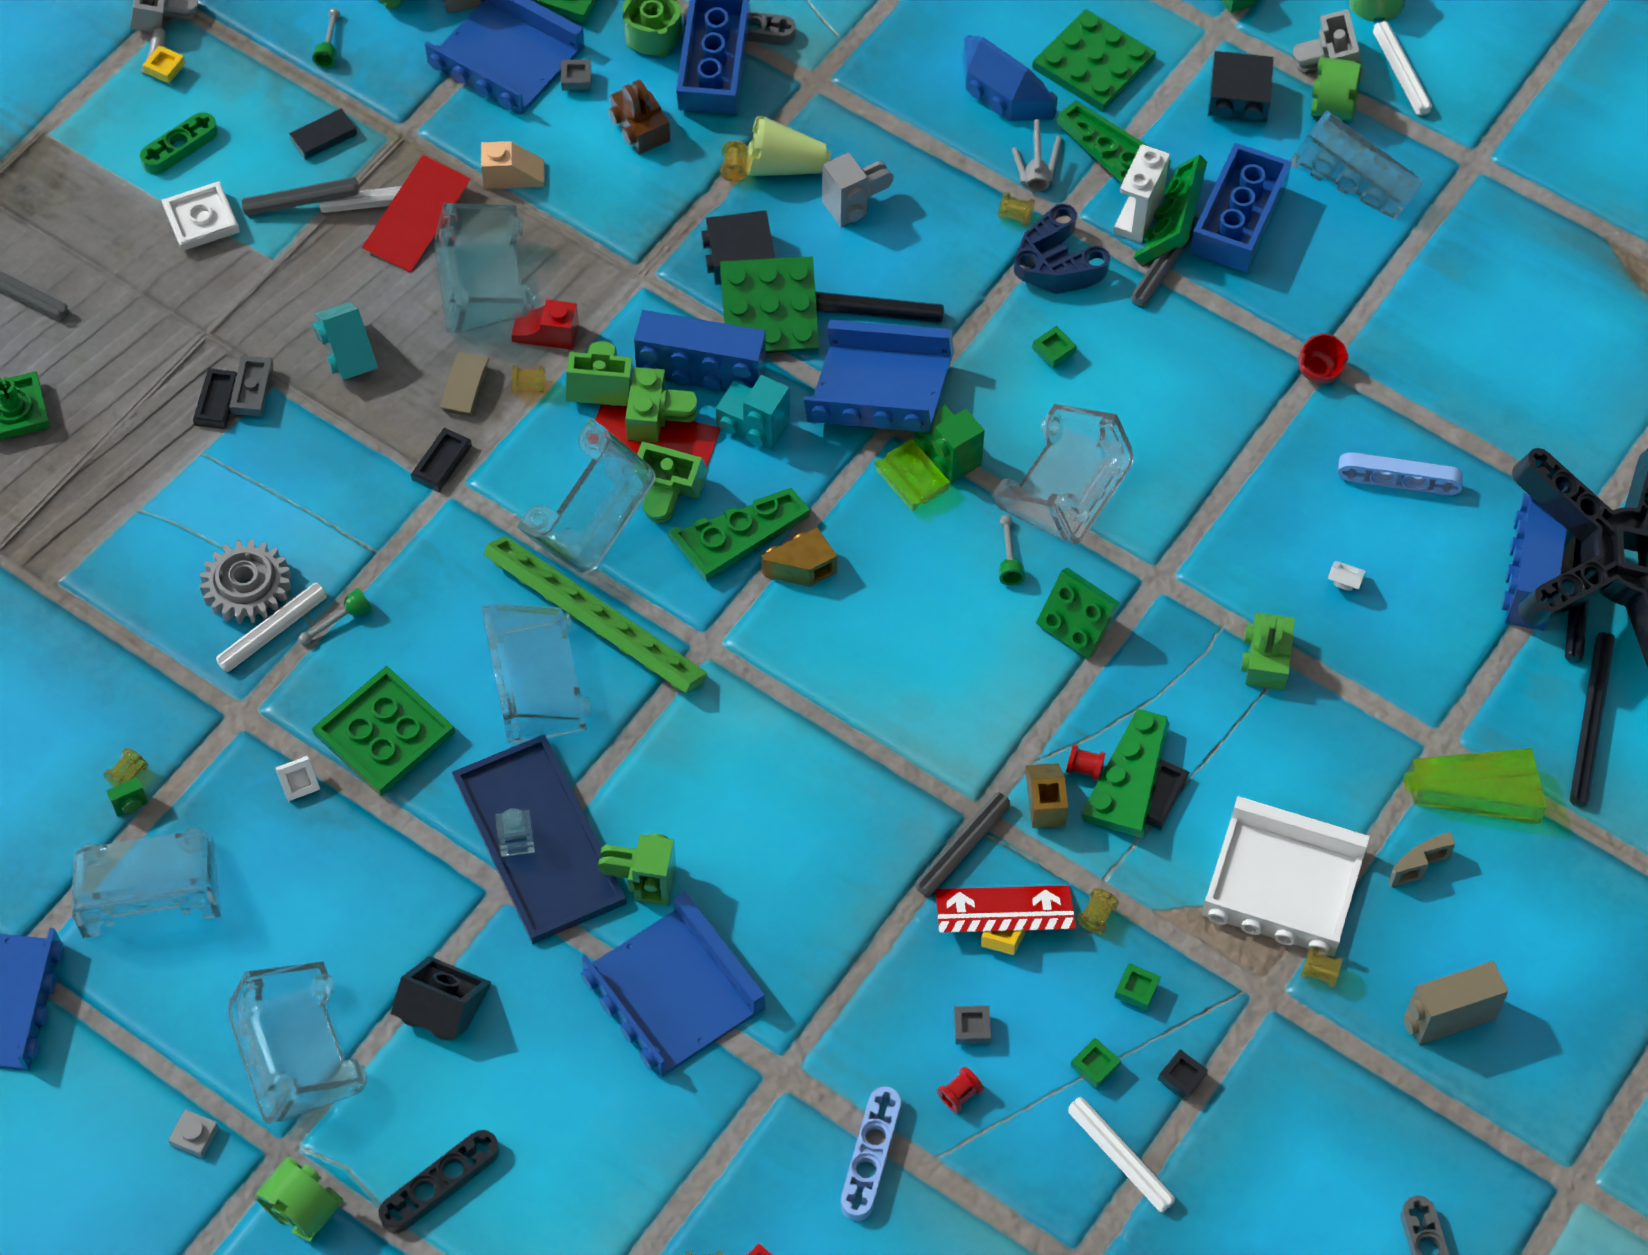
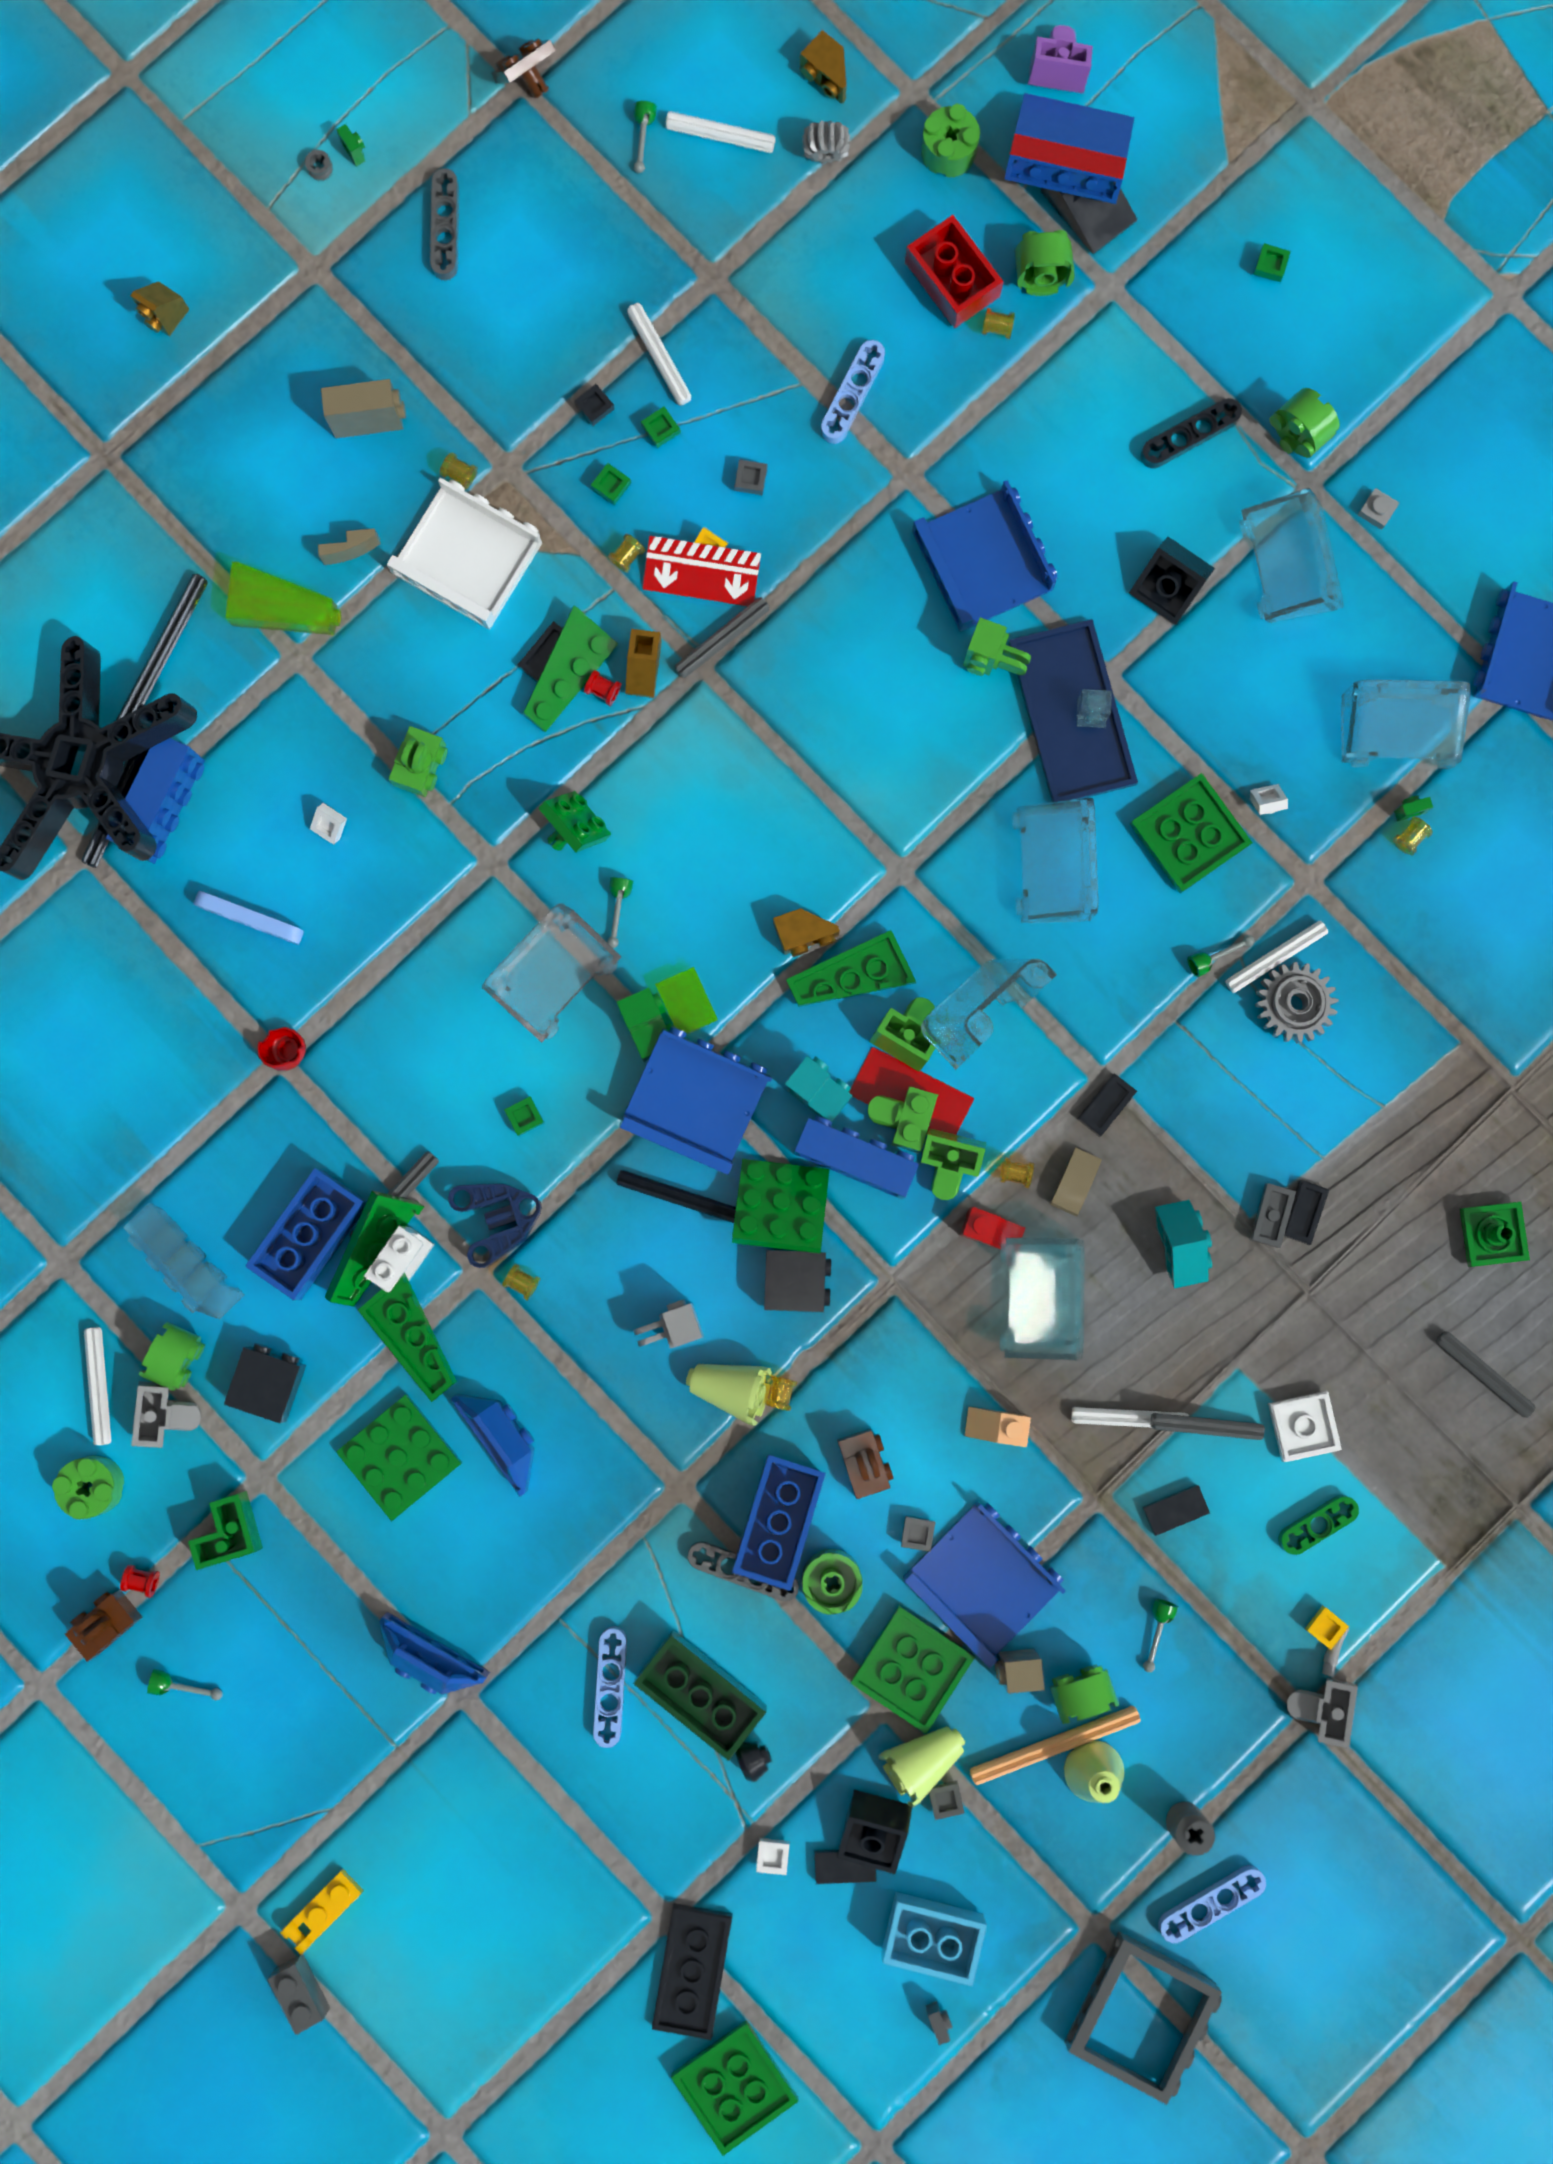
camera: 170 degrees left, 25 degrees up
(415, 213) = (1096, 1389): red sticker -> none
(595, 614) = (990, 906): bright green plate -> none
(960, 1089) = (772, 425): red bush -> none
(1037, 174) = (490, 1321): light grey plant -> none

